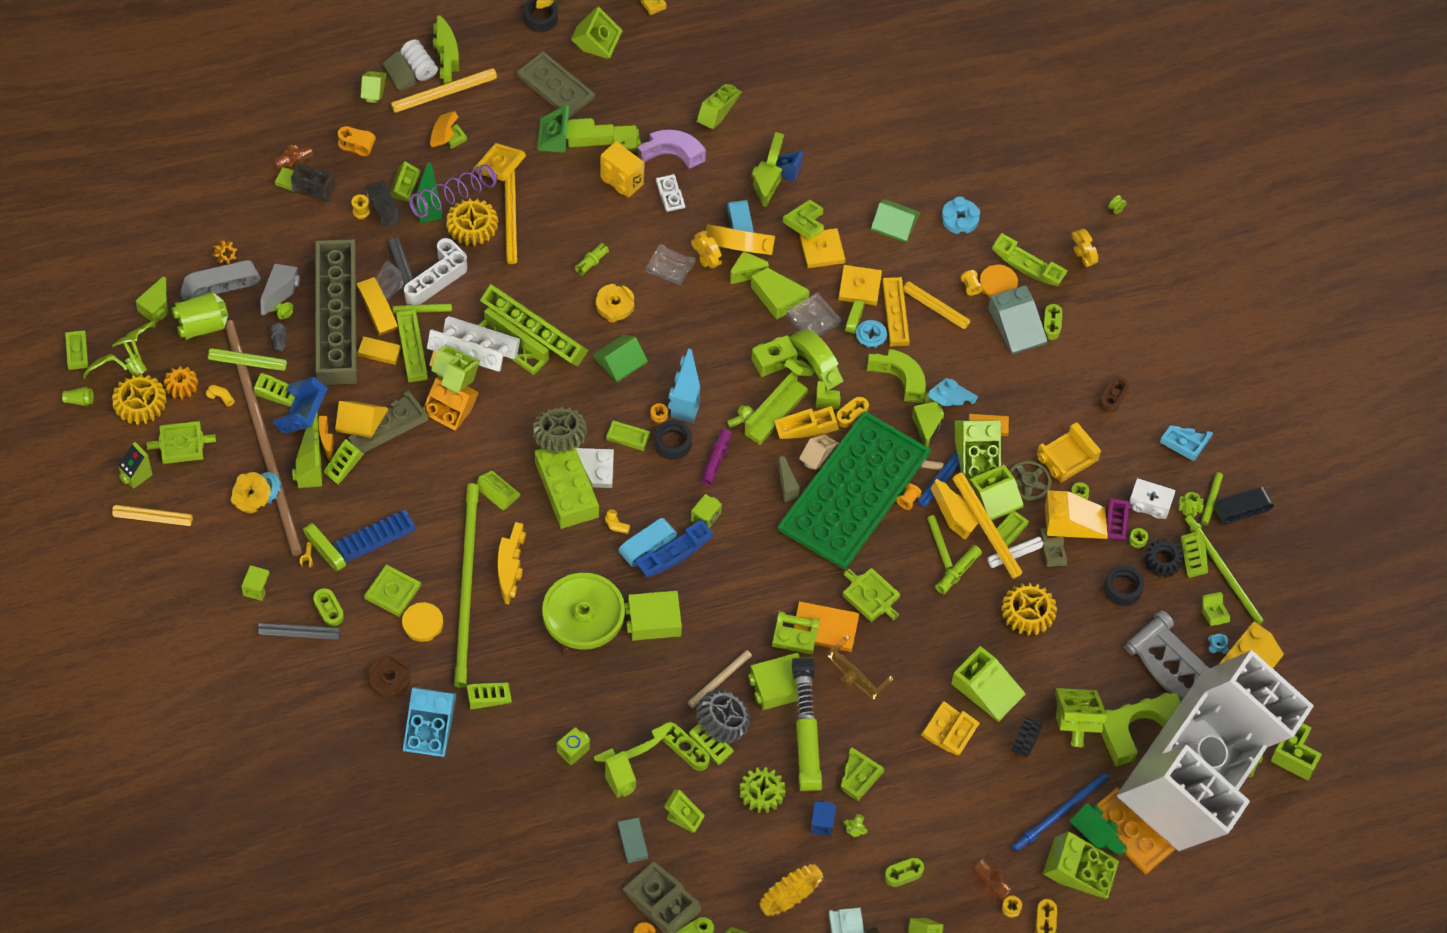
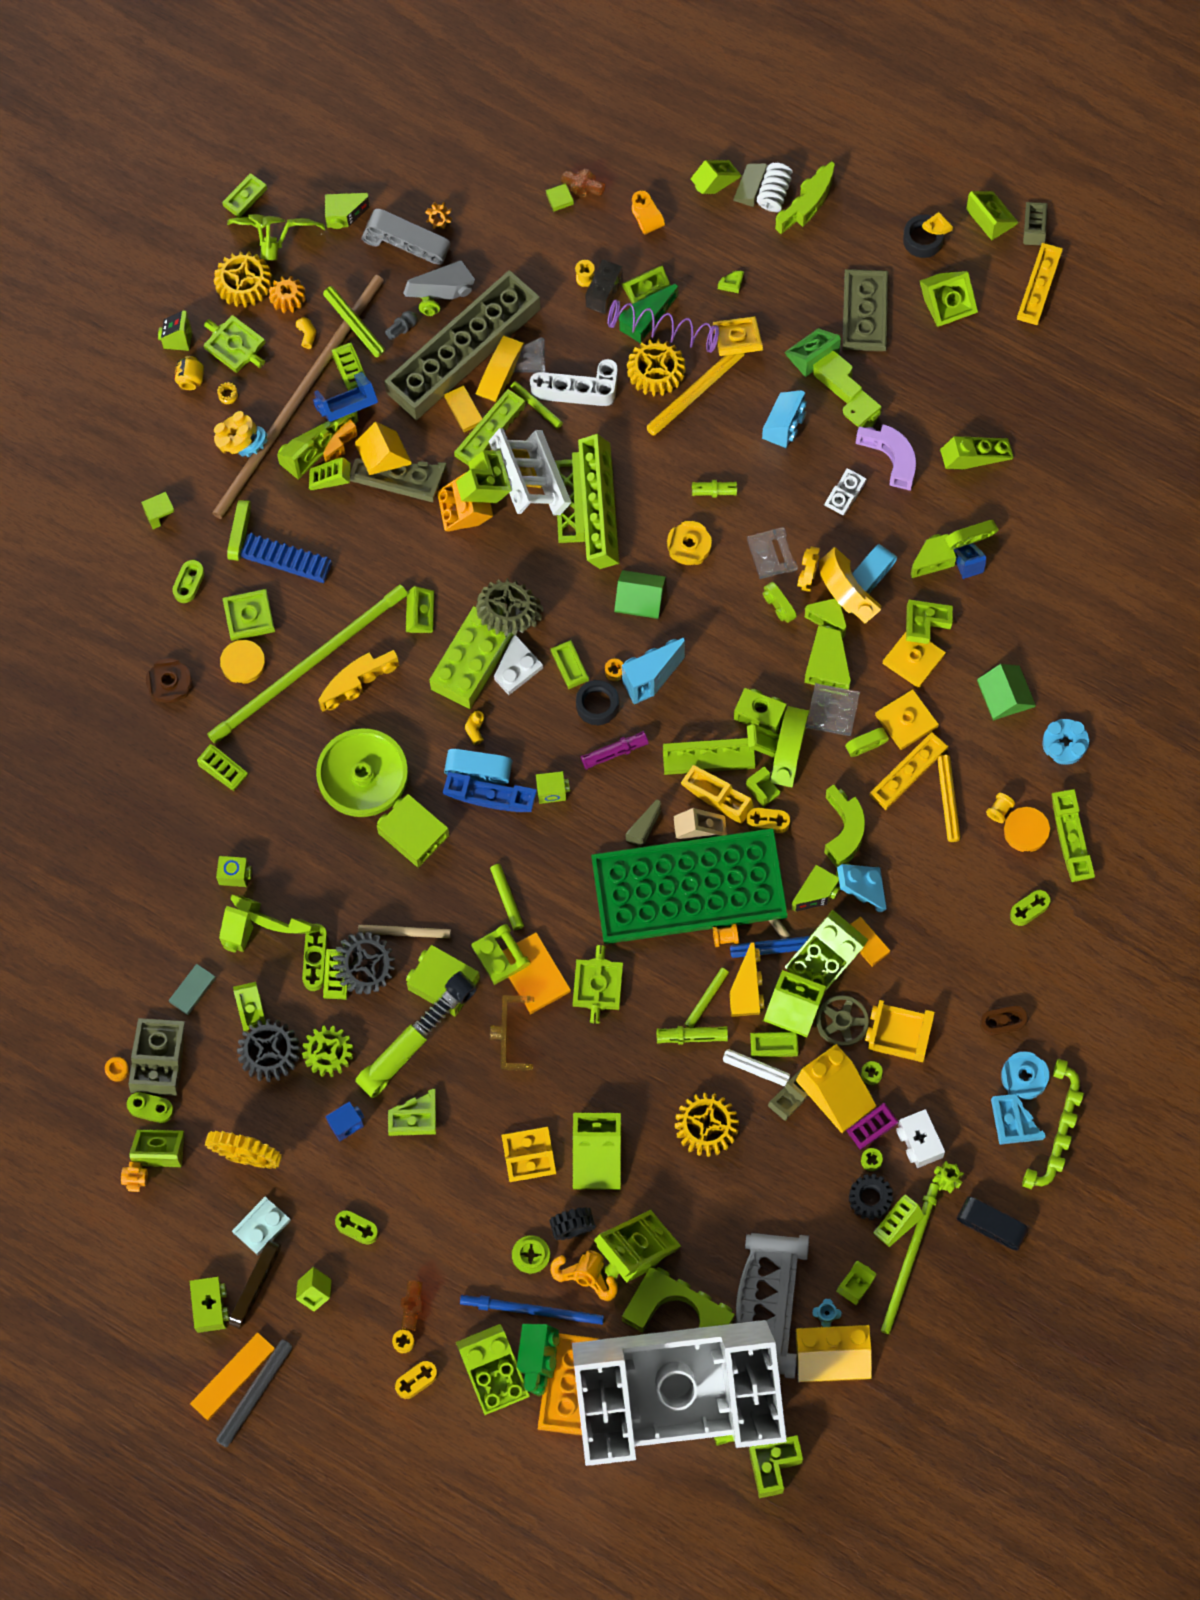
camera: 55 degrees right, 10 degrees up
(80, 396) = (205, 236): lime cone -> none
(152, 515) = (150, 383): yellow axle -> none
(173, 485) = (189, 373): none -> yellow head
(200, 315) = (356, 251): lime cylinder -> none
(210, 470) = (221, 391): none -> yellow bush
(298, 630) = (148, 579): dark grey axle -> none
(307, 556) = (221, 526): yellow hand -> none
(313, 182) = (569, 217): clear smoke brick -> none
(400, 260) = (565, 349): dark grey axle -> none
(429, 721) = (156, 743): medium azure slope -> none
(442, 129) = (721, 267): light orange slope -> none
(443, 90) = (768, 232): yellow axle -> none
(587, 180) = (784, 418): none -> medium azure slope
(622, 169) = (821, 434): yellow brick -> none
(710, 286) = (783, 607): none -> lime plate
(740, 819) = (253, 1038): none -> dark grey gear
(744, 412) = (677, 737): lime plate -> none
(755, 599) = (507, 897): none -> lime piece
(855, 826) = (361, 1153): lime plant -> none
(865, 328) = (867, 761): medium azure gear -> none
(987, 525) = (751, 1022): yellow axle -> none
(1017, 319) = (999, 878): slope -> none
(1021, 773) = (522, 1247): none -> lime gear
(1067, 757) = (586, 1274): none -> light orange piece
(1084, 248) = (1130, 871): yellow plate -> none
(1128, 572) = (814, 1168): black tyre -> none
(1158, 421) = (1034, 1066): none -> medium azure plate
(1211, 413) = (1061, 1139): none -> lime bar
(1211, 498) = (976, 1190): lime bar -> none

